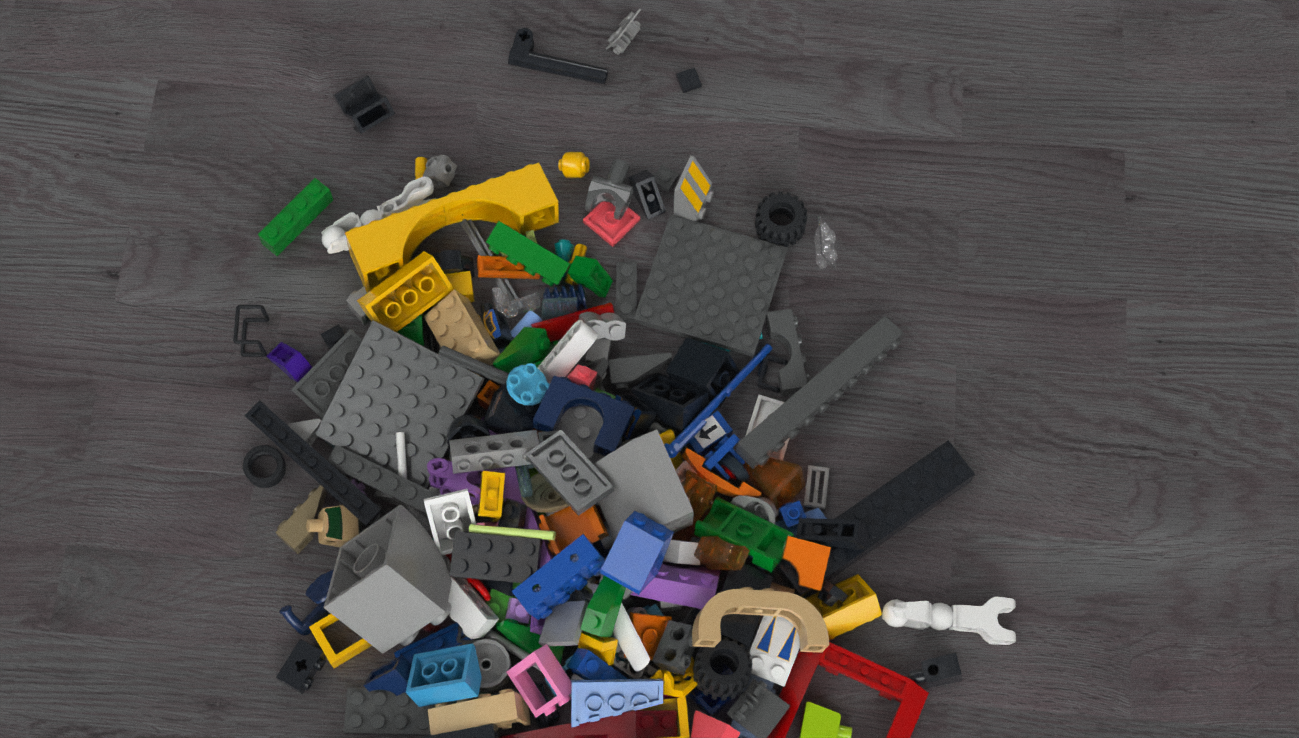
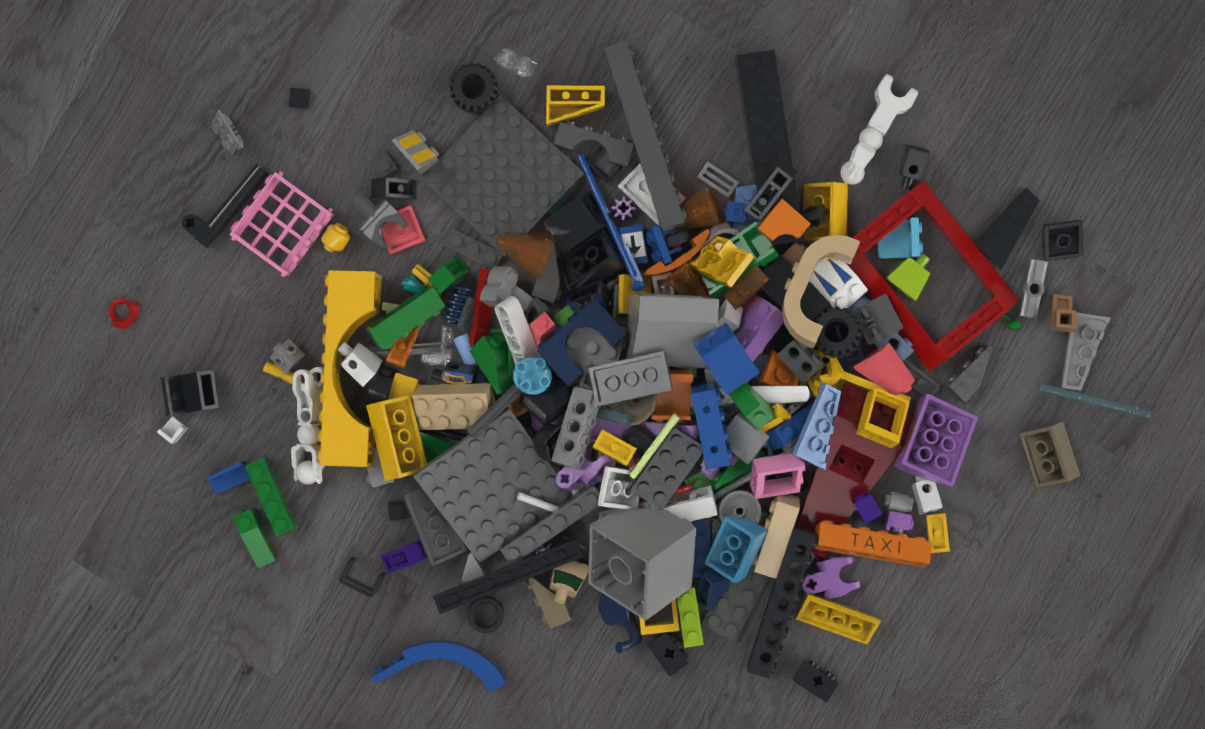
camera: 65 degrees left, 20 degrees up
(212, 472) = (448, 650): none -> blue arch
(249, 220) = (254, 537): none -> green slope
(296, 171) = (228, 477): none -> blue panel
(320, 108) = (172, 430): none -> white panel
(349, 670) = (689, 618): none -> lime brick
(403, 26) = (120, 322): none -> red piece
(464, 233) = (359, 362): none -> white torso
(568, 84) = (304, 242): none -> bright pink window
(649, 331) = (527, 250): none -> clear orange slope
(735, 517) = (721, 261): none -> yellow slope
(741, 403) = (619, 212): none -> lavender gear
(816, 312) = (572, 101): none -> yellow wedge
(853, 699) = (902, 241): none -> medium azure bracket

